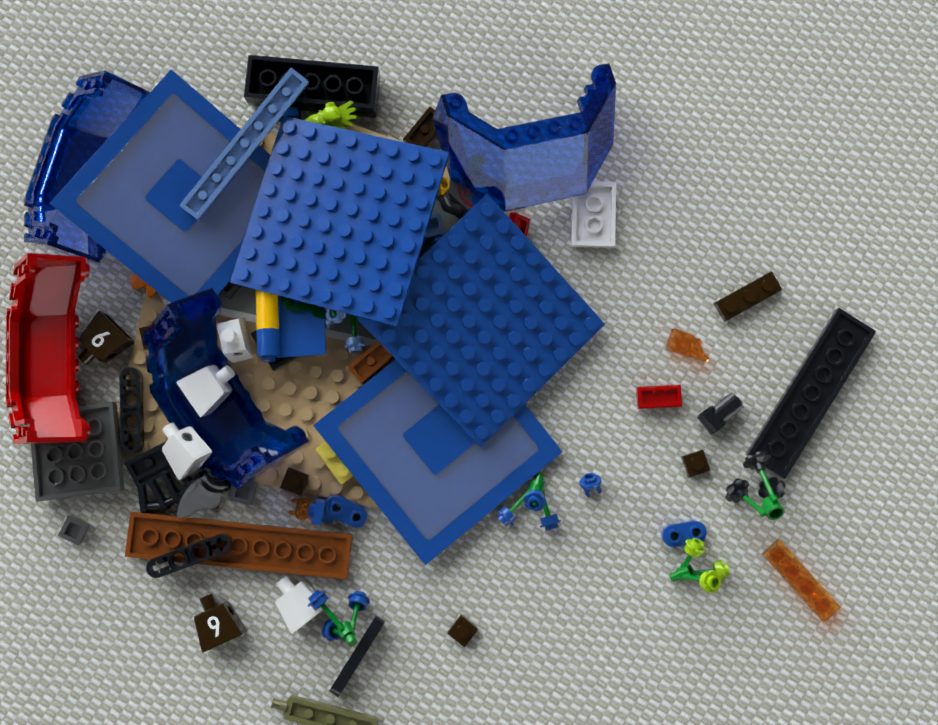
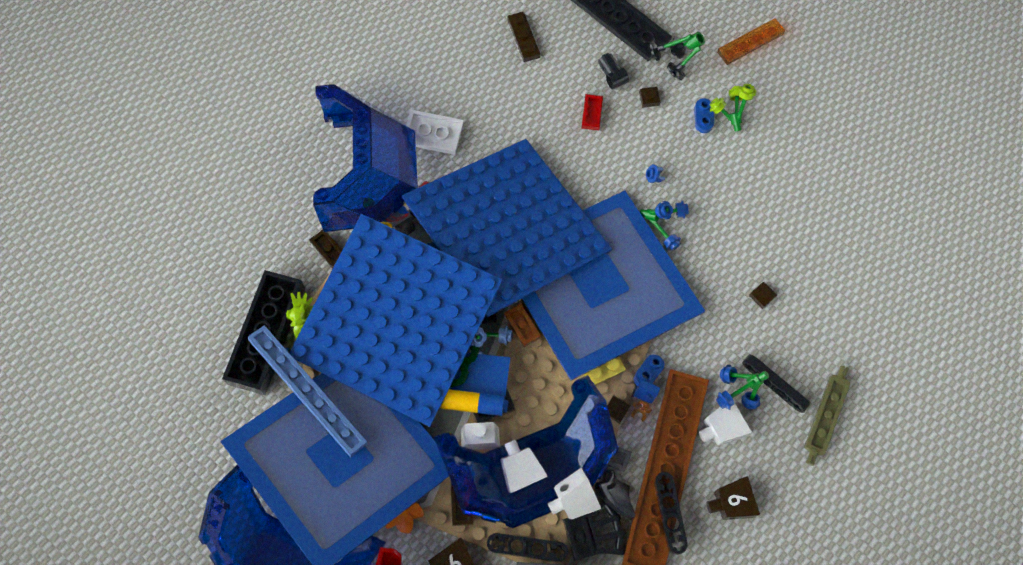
camera: 80 degrees left, 15 degrees down
(686, 345) = (554, 86): clear orange slope -> none

